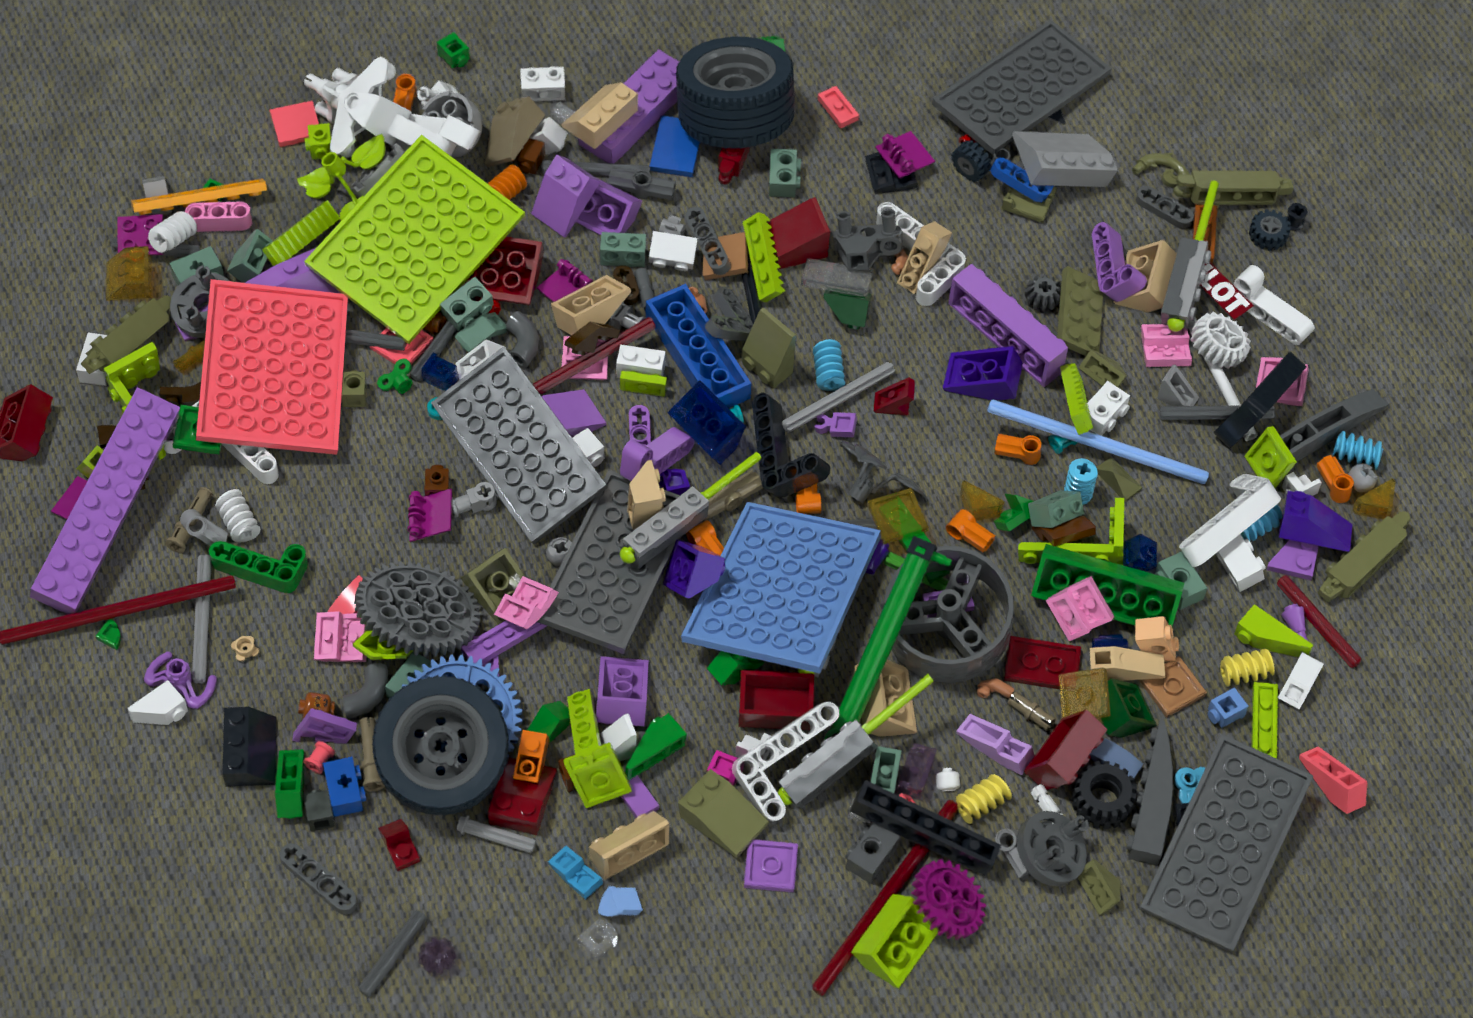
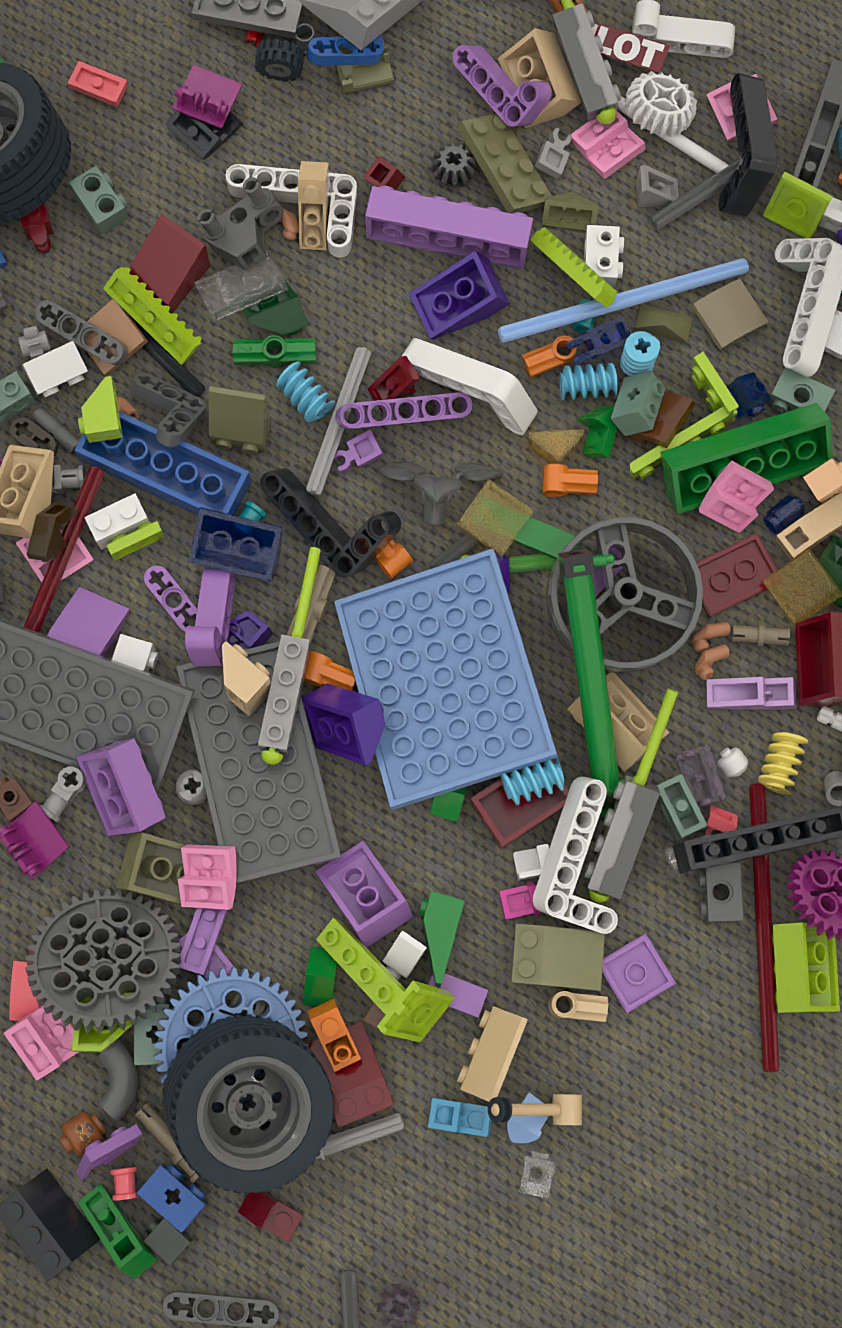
camera: 35 degrees left, 20 degrees up
(513, 516) = (121, 787): none -> medium lavender slope
(651, 912) = (565, 1109): none -> tan piece
(680, 287) = (101, 413): none -> lime slope
(714, 857) = (581, 1006): none -> tan piece
(792, 681) = (533, 780): none -> medium azure piece
(828, 328) = (256, 351): none -> green piece
(881, 404) = (416, 414): none -> medium lavender beam
(954, 426) = (475, 379): none -> white beam
(980, 702) = (707, 658): none -> nougat arm
(990, 268) = (383, 174): none -> dark red plate
(1029, 477) = (588, 380): none -> medium azure piece
(1057, 454) = (601, 339): none -> clear blue hinge
(1119, 329) = (552, 156): none -> light grey plate
(1169, 500) = (729, 314): none -> dark tan slope

